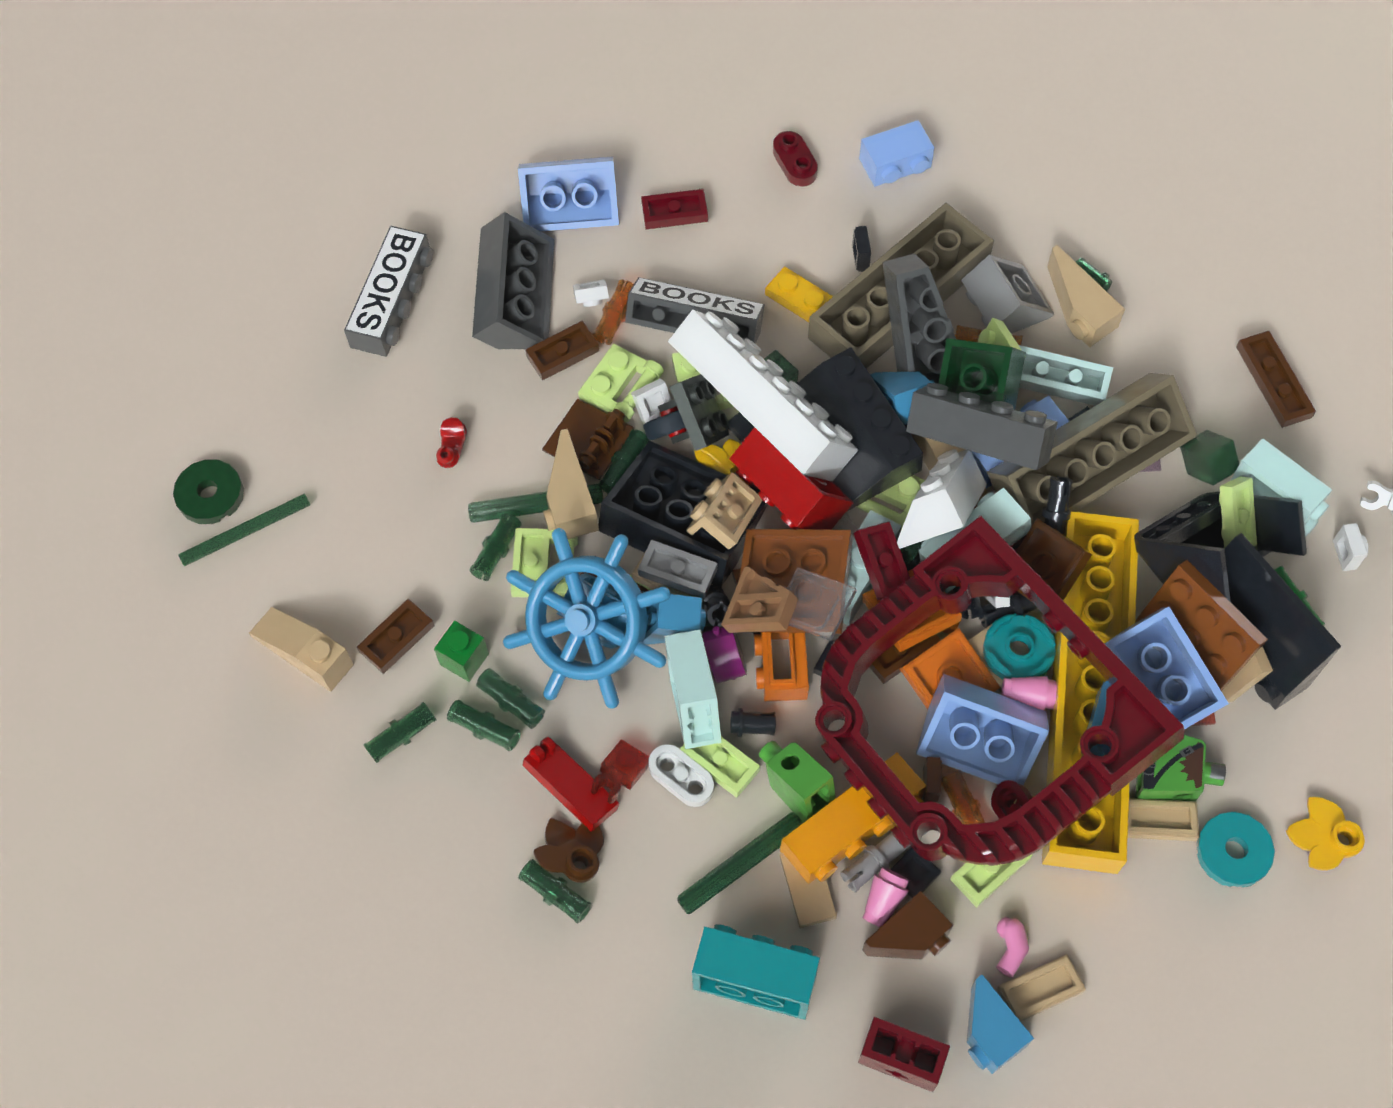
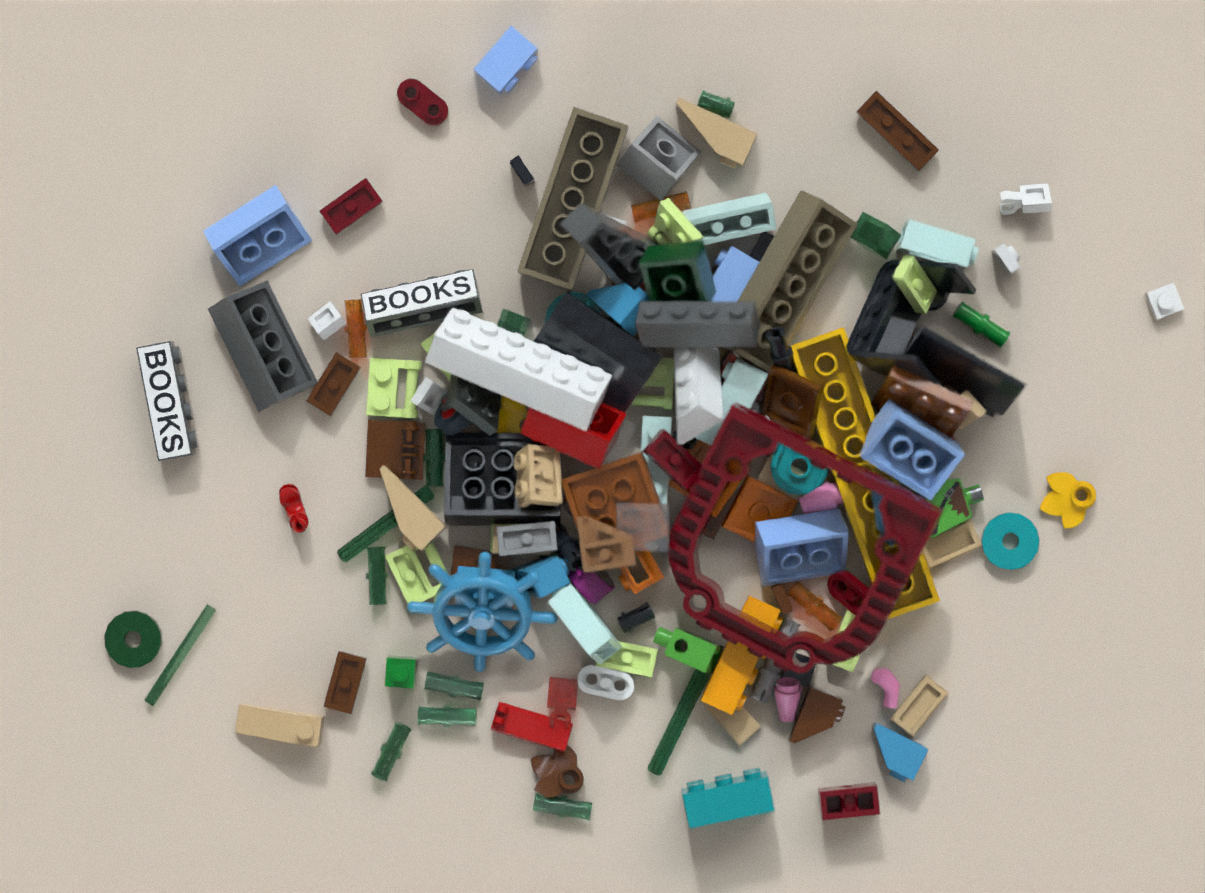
camera: 30 degrees left, 25 degrees up
(796, 293) = (493, 236): yellow plate -> none

